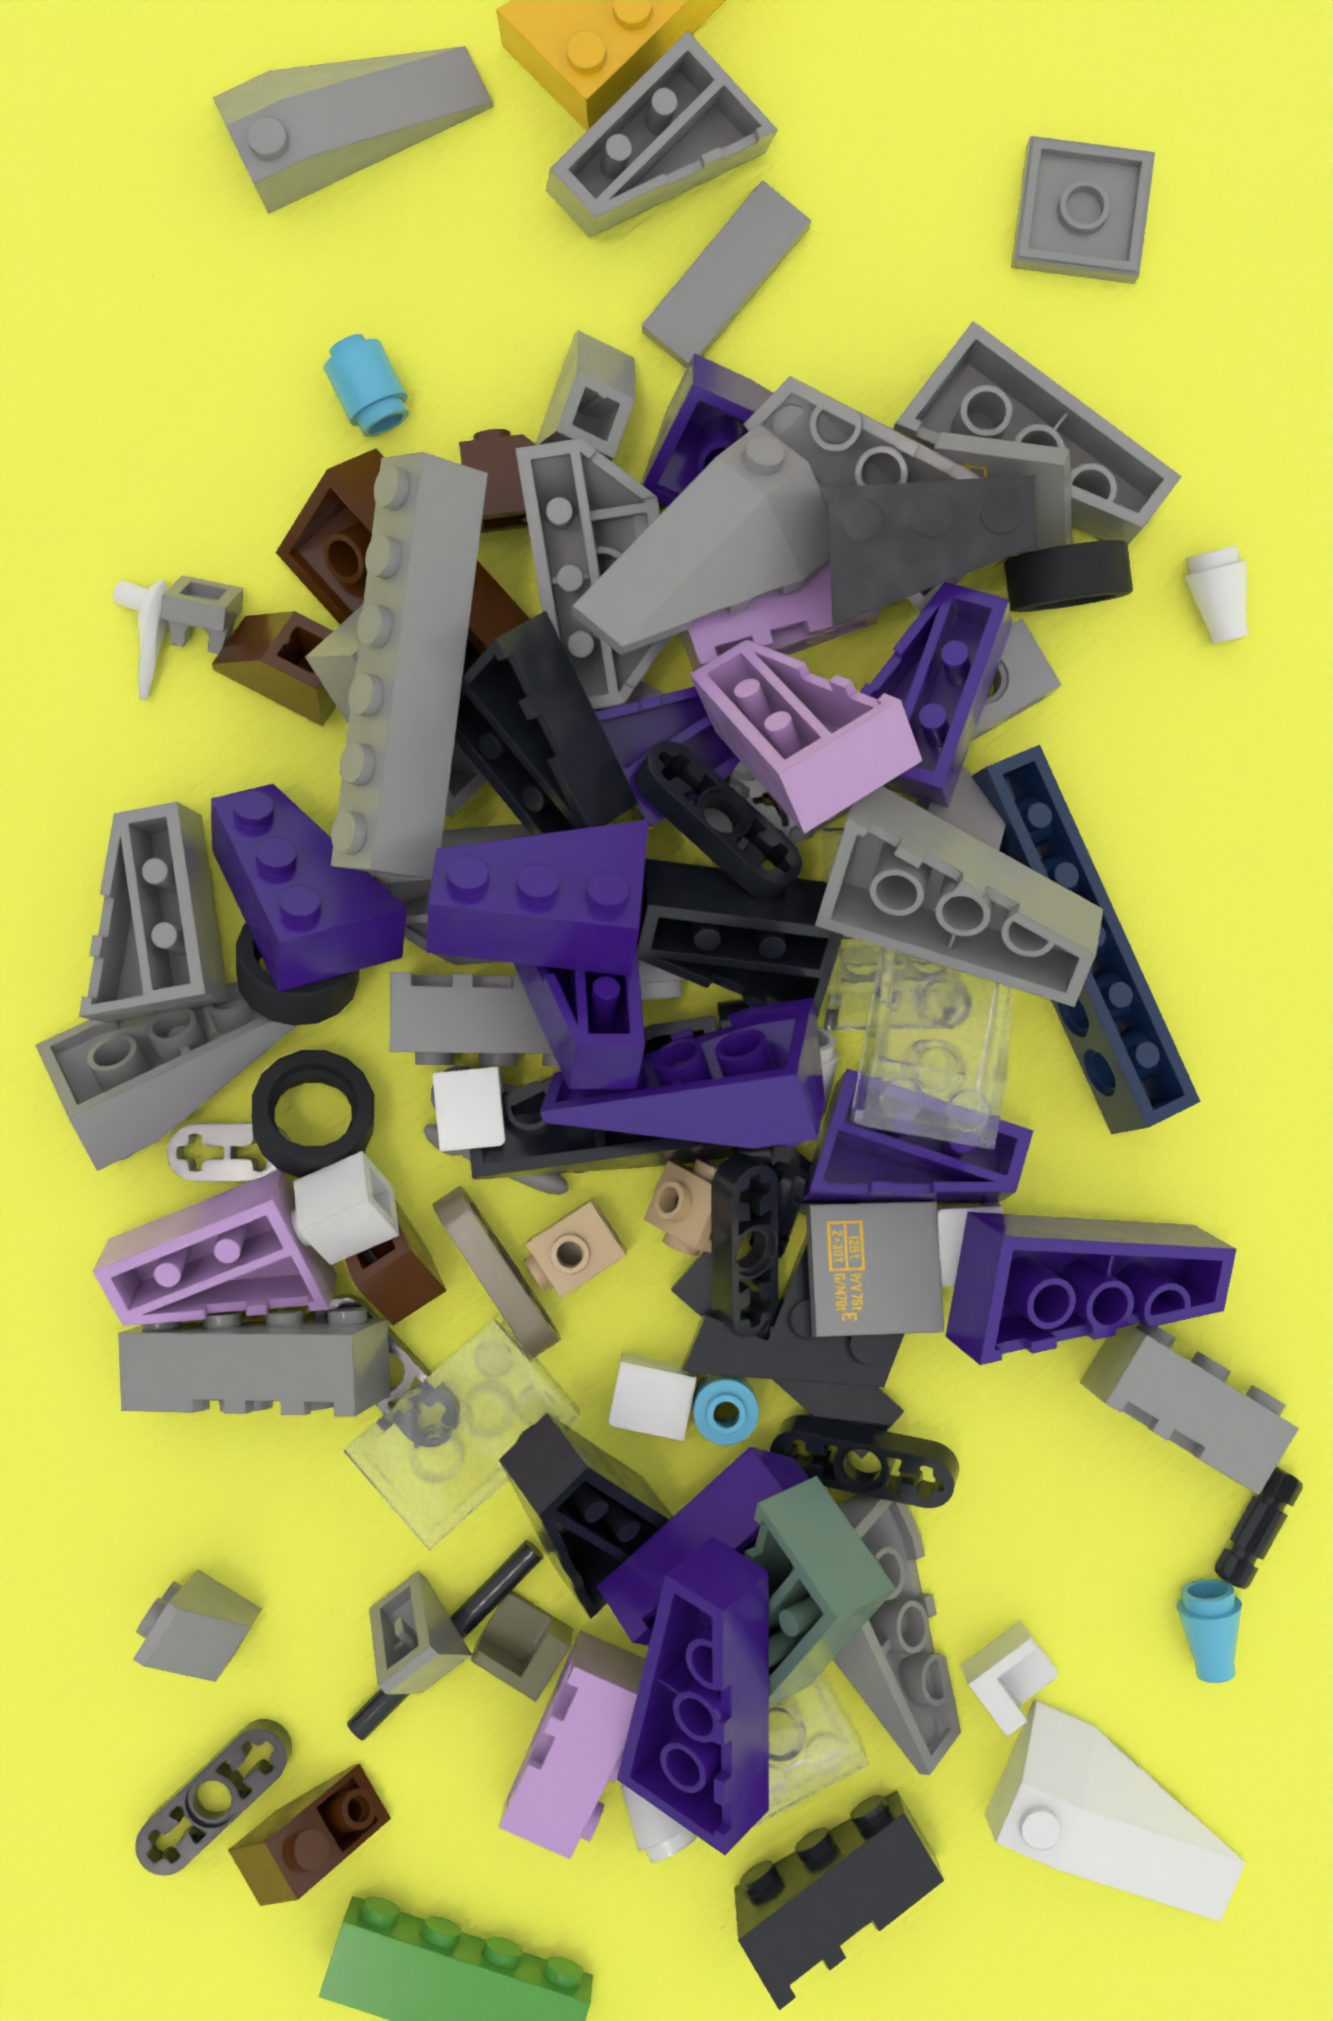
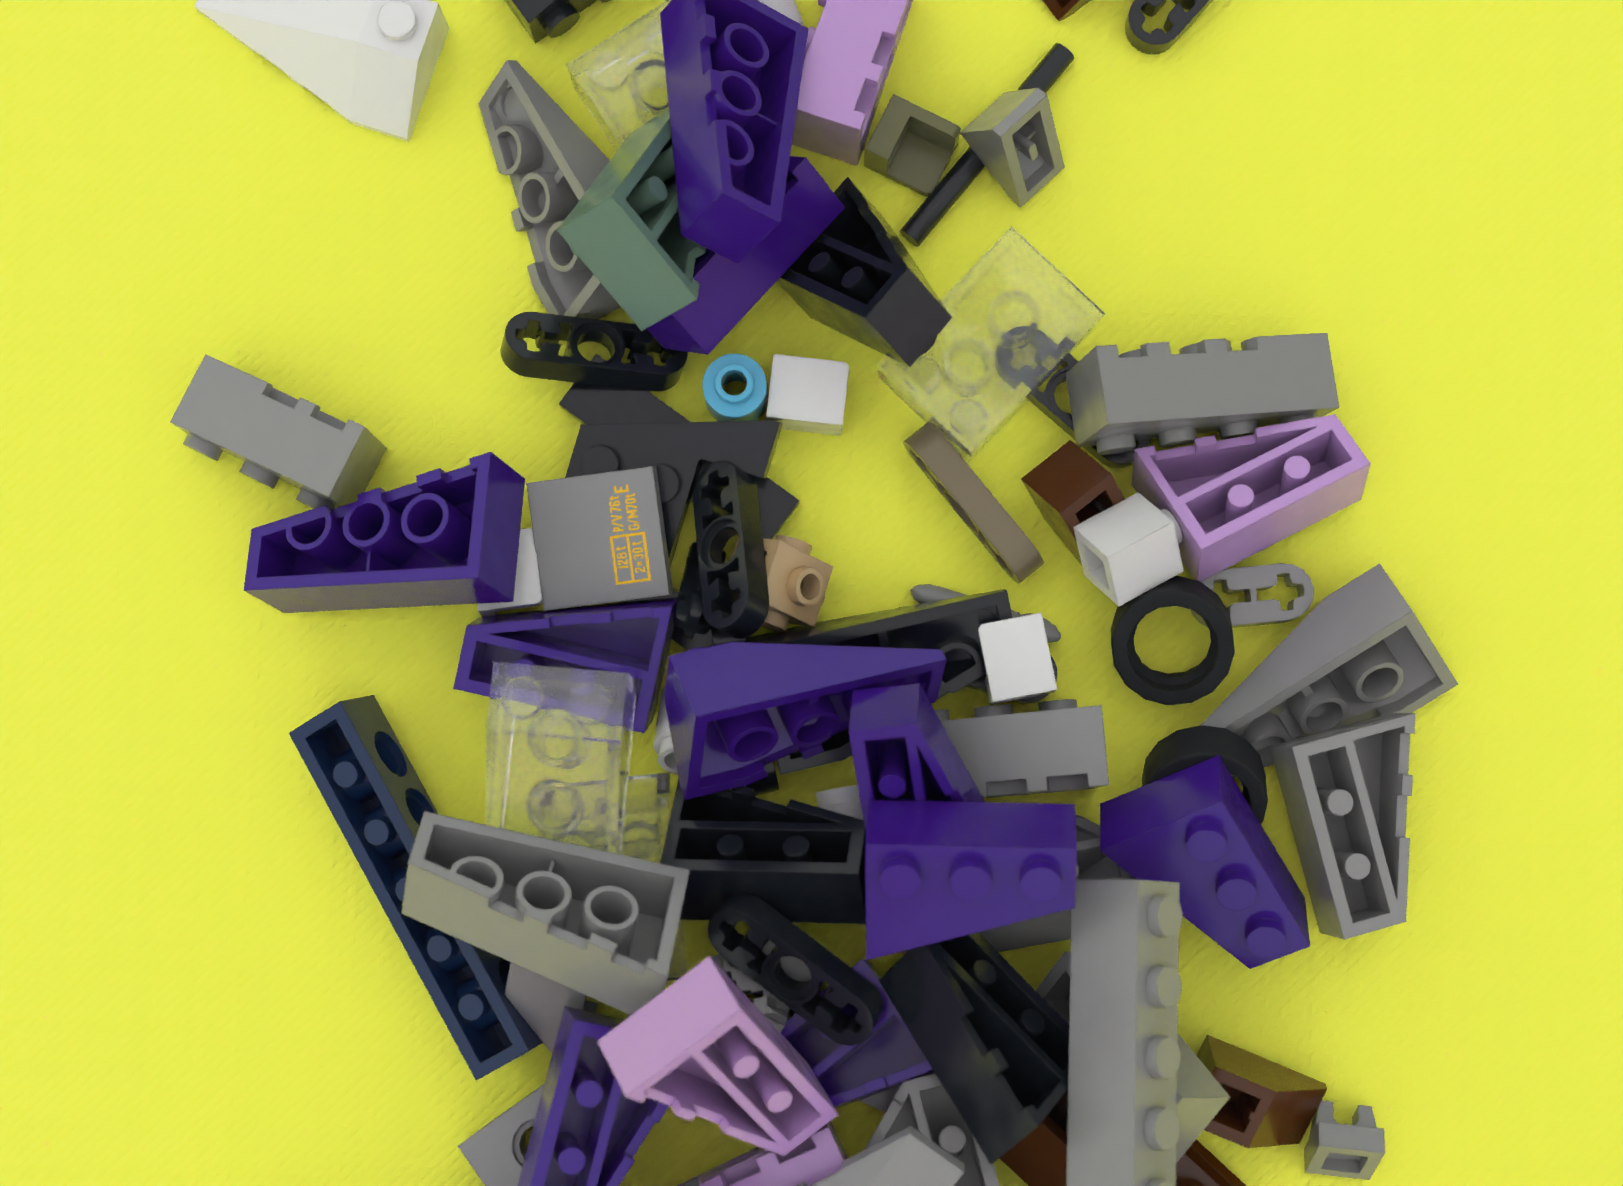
camera: 165 degrees right, 5 degrees down
(149, 625) = (1394, 1121): white bar -> none
(195, 1628) = (1230, 133): light grey slope -> none
(574, 1249) = (898, 531): tan brick -> none
(1008, 1674) = (436, 161): white panel -> none
(1211, 1625) = (242, 226): medium azure cone -> none
(1258, 1529) = (201, 322): black axle -> none

